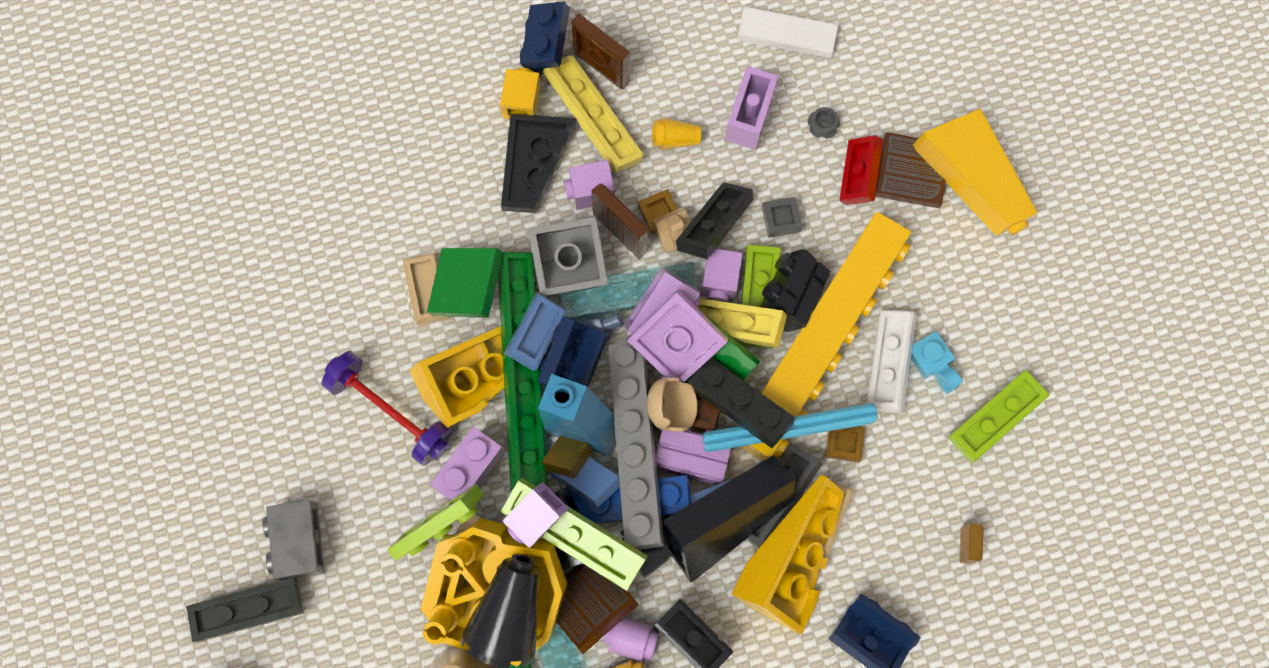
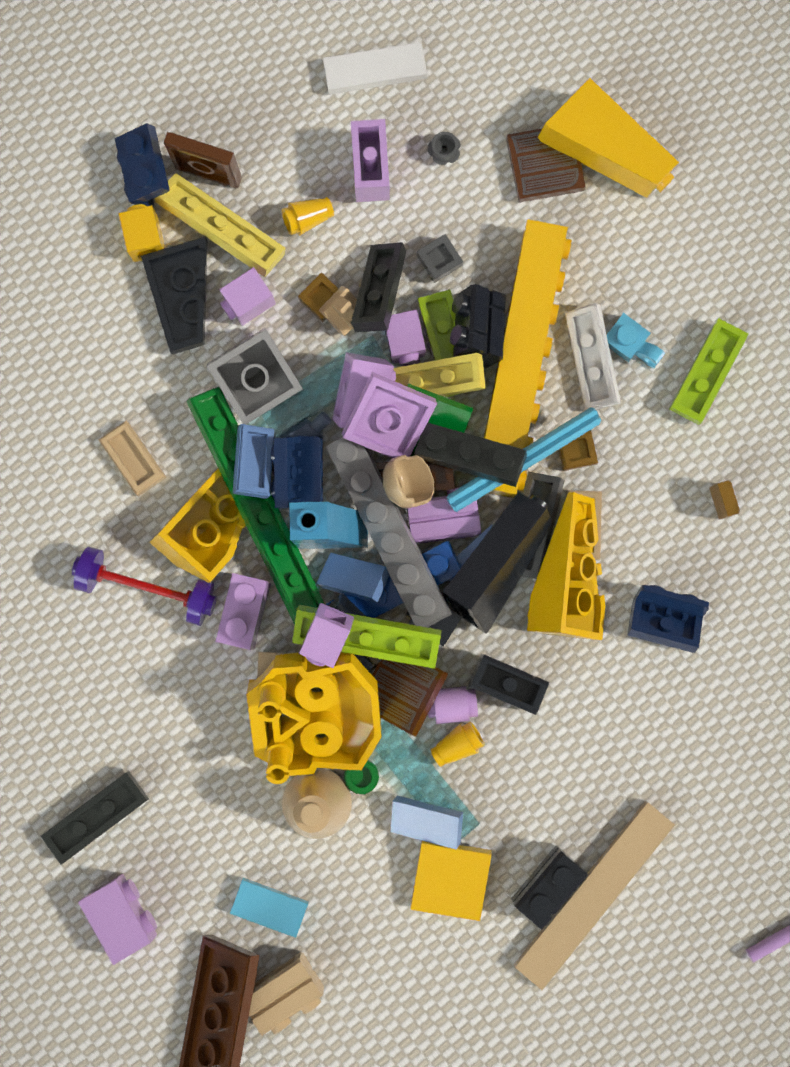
camera: 20 degrees left, 10 degrees up
(293, 540) = (111, 739): flat silver brick -> none
(437, 523) = (237, 674): lime plate -> none
(465, 282) = (167, 440): green tile -> none
(506, 617) = (336, 735): black cone -> none
(567, 457) = (329, 565): pearl gold tile -> none
(619, 220) = (289, 322): reddish brown tile -> none
(861, 170) = (497, 182): red plate -> none

